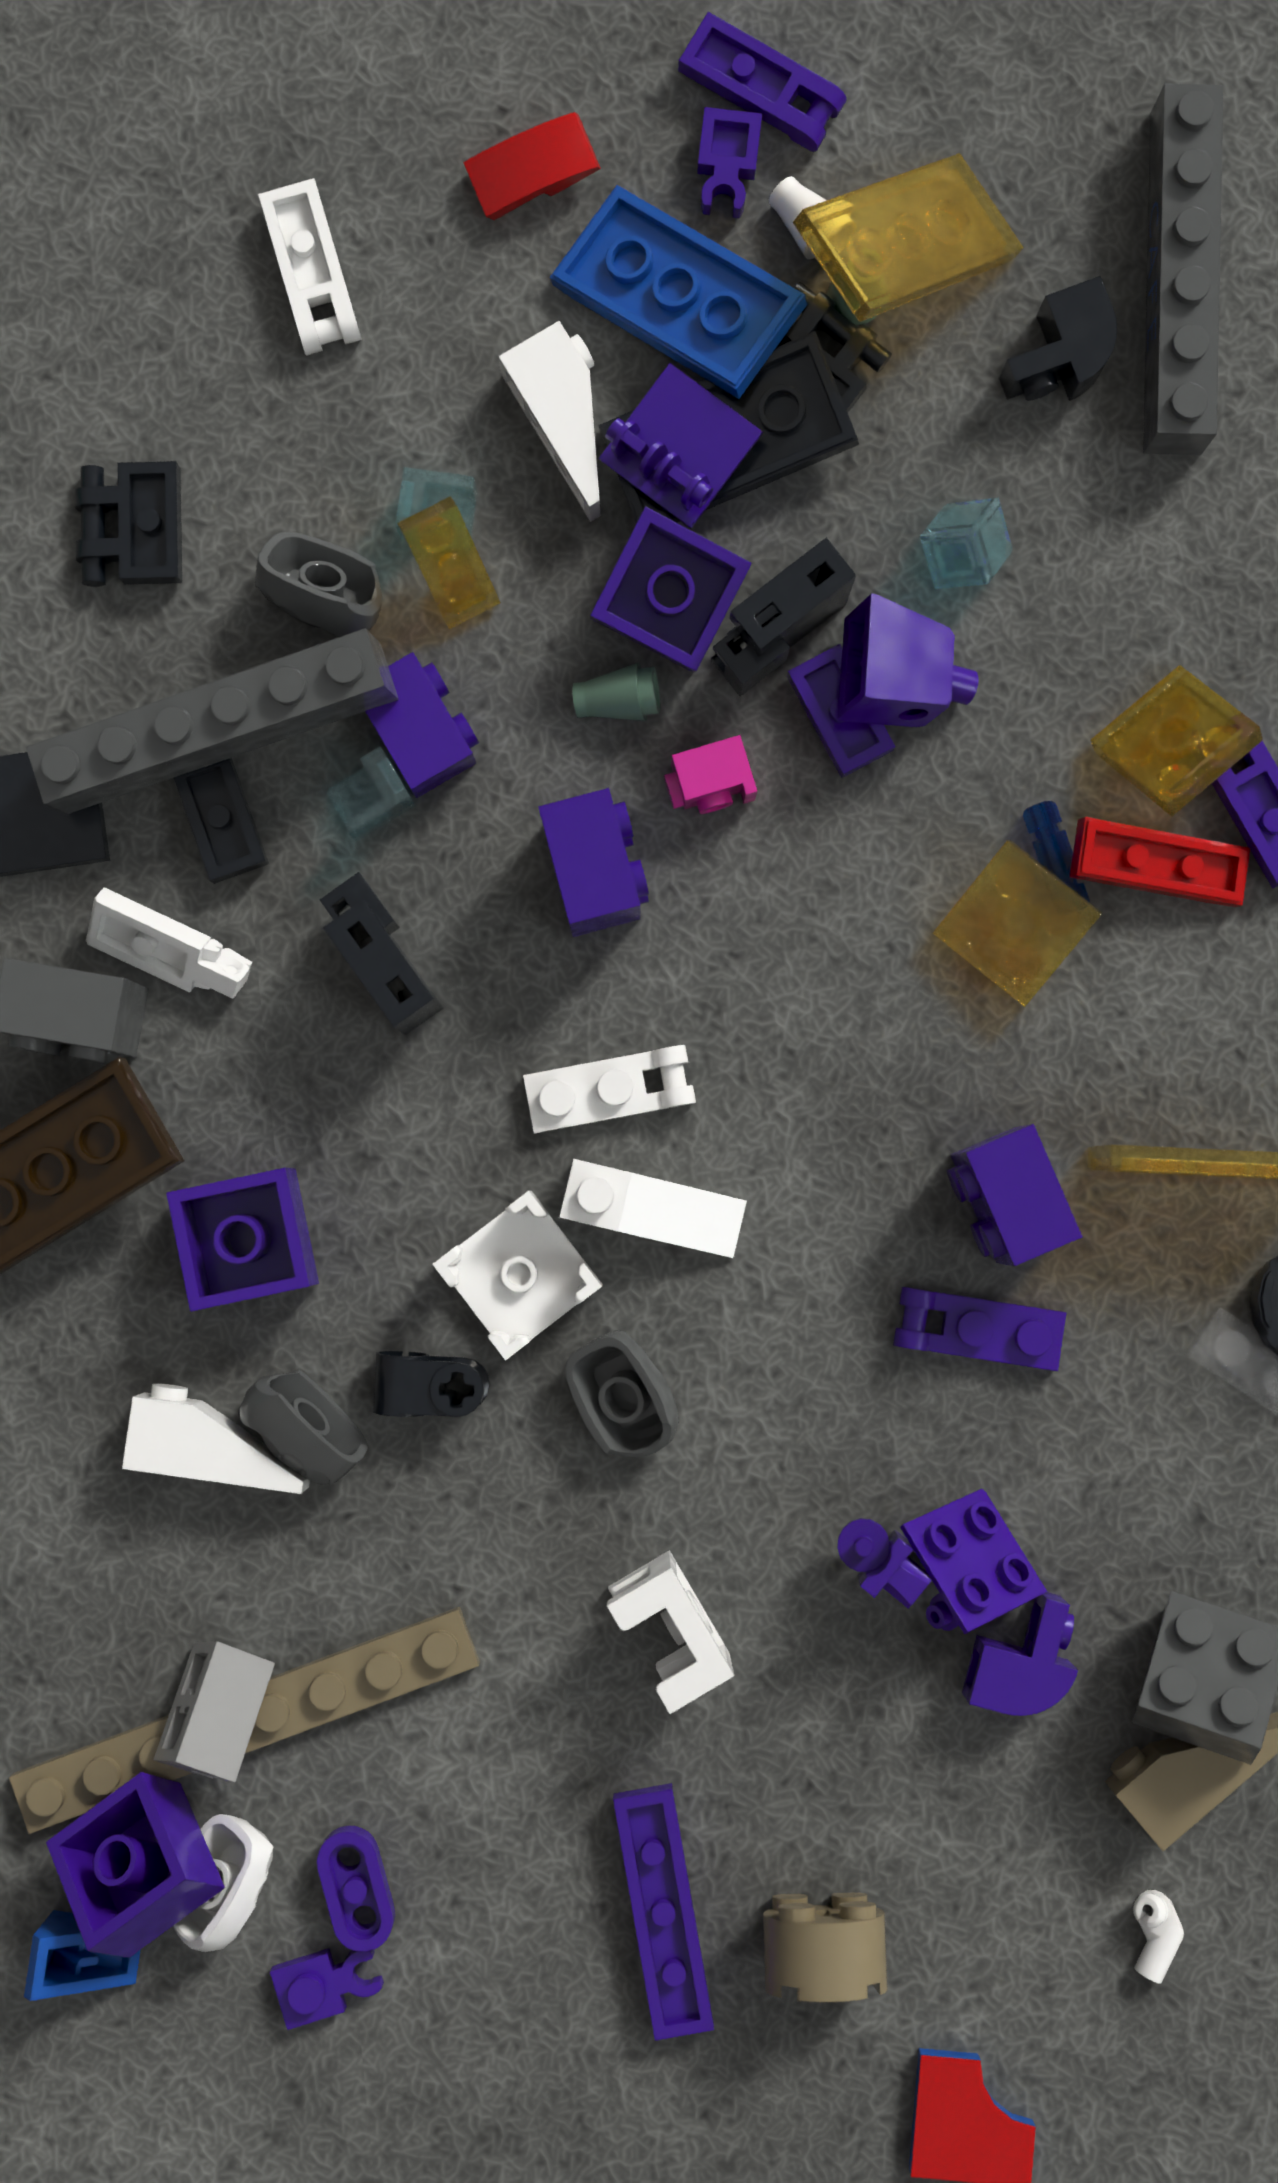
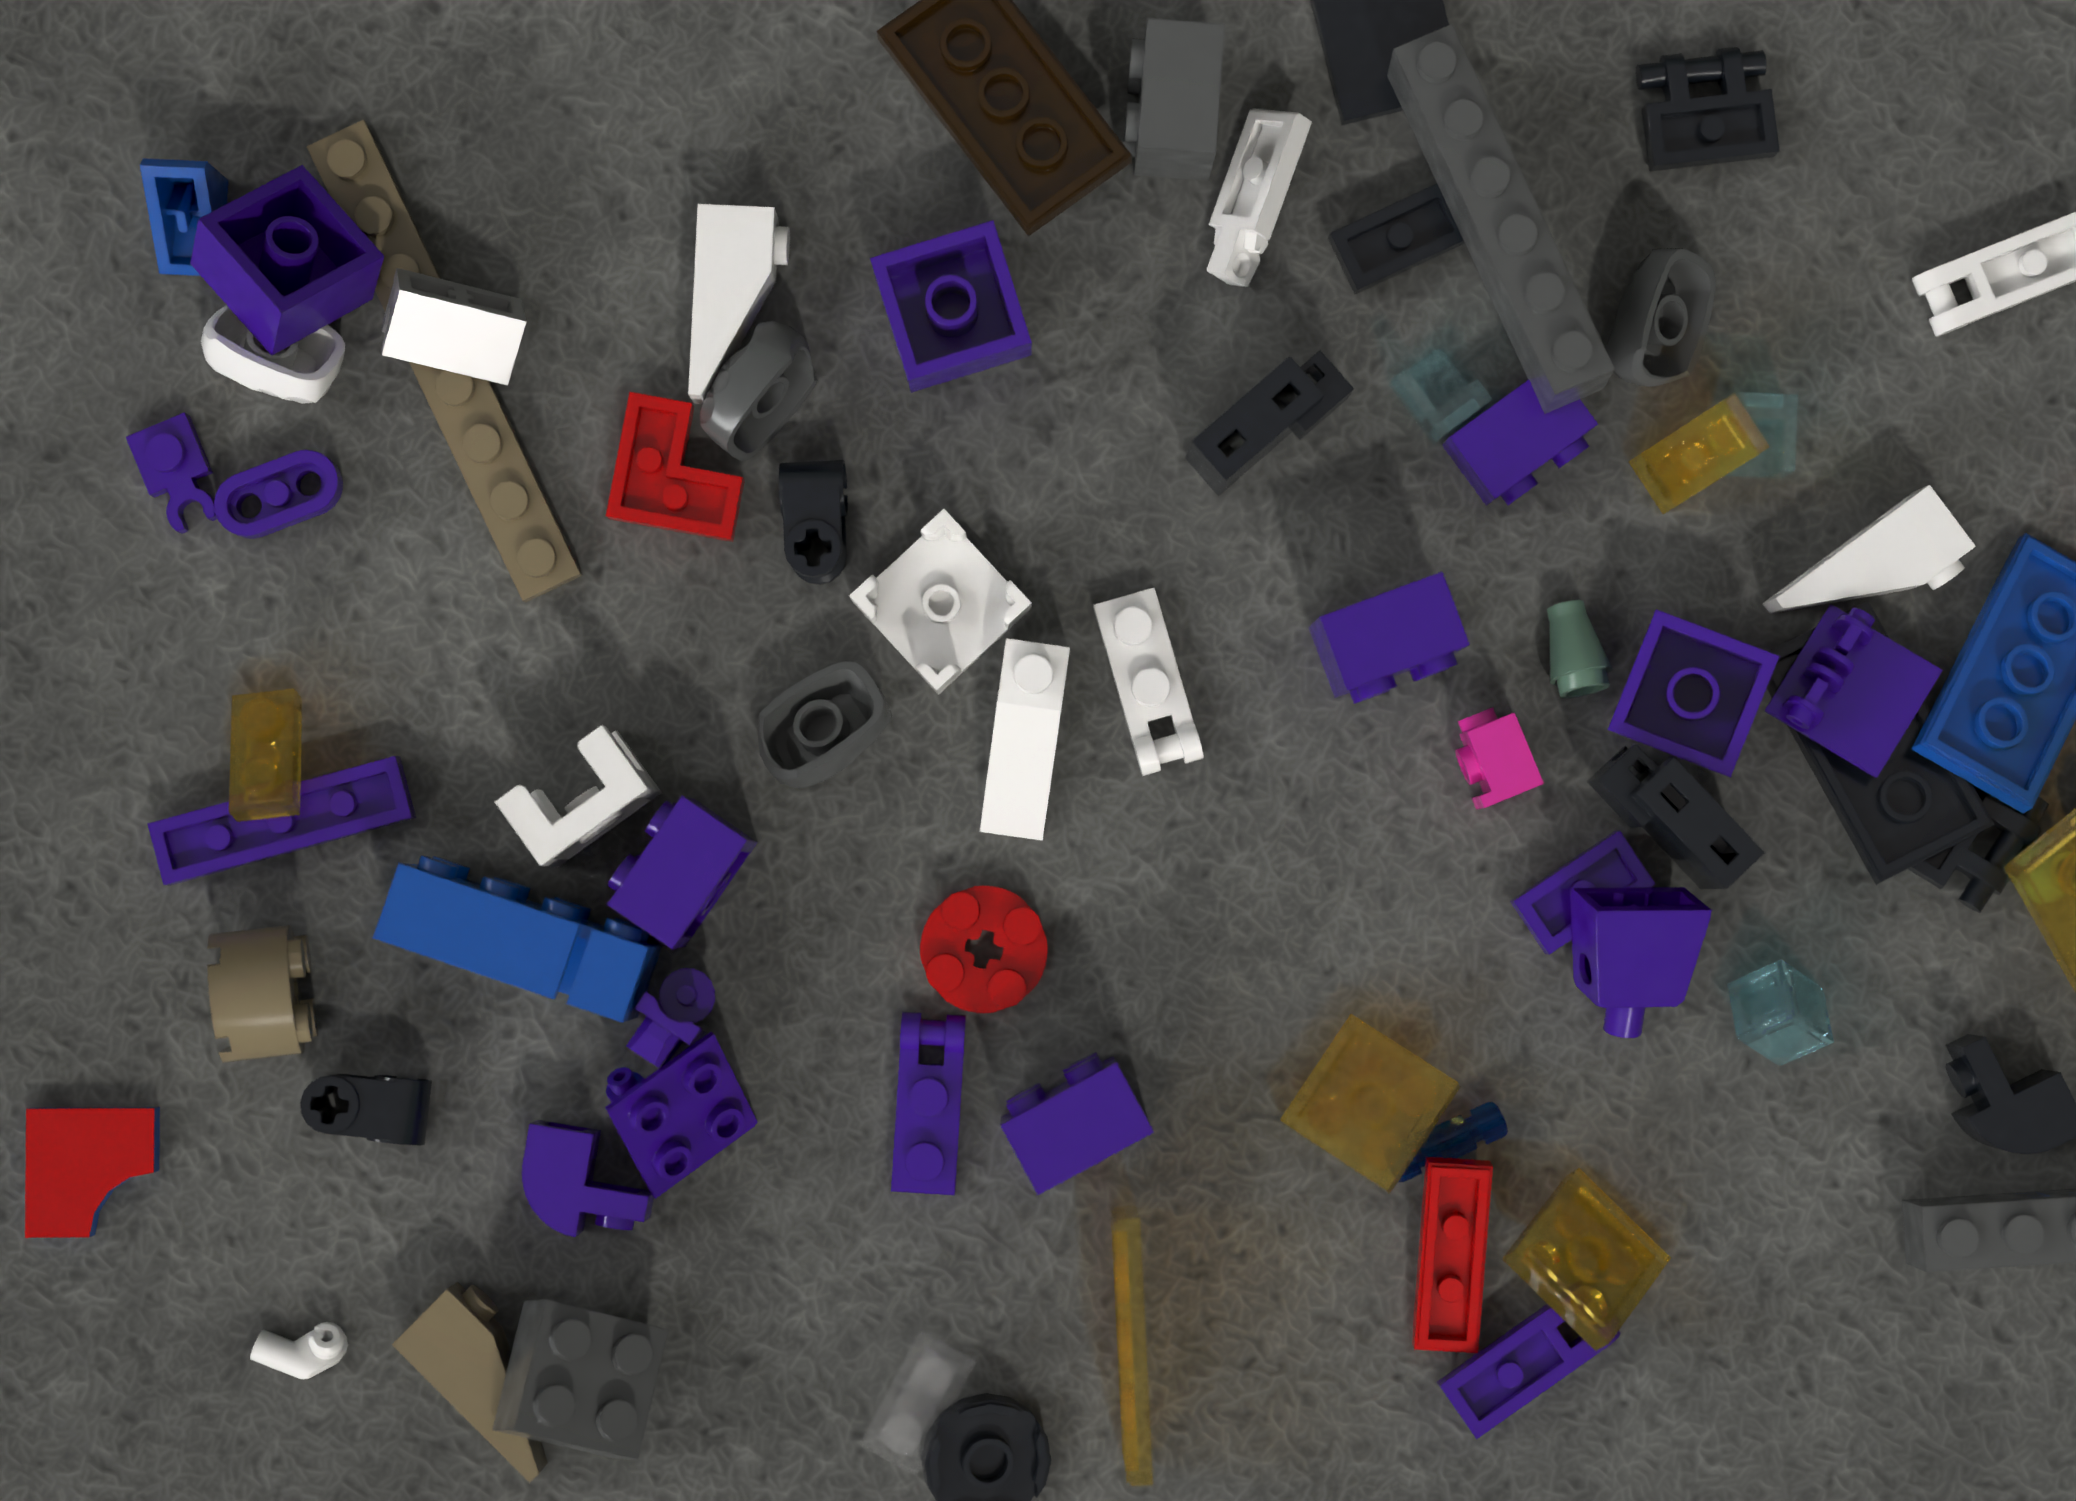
camera: 80 degrees right, 0 degrees up
(378, 1533) = (655, 486): none -> red plate
(601, 1922) = (265, 755): none -> clear yellow plate
(749, 1542) = (679, 871): none -> dark purple brick
(797, 1702) = (516, 940): none -> blue piece
(858, 1295) = (952, 968): none -> red plate
(942, 1845) = (378, 1110): none -> black piece

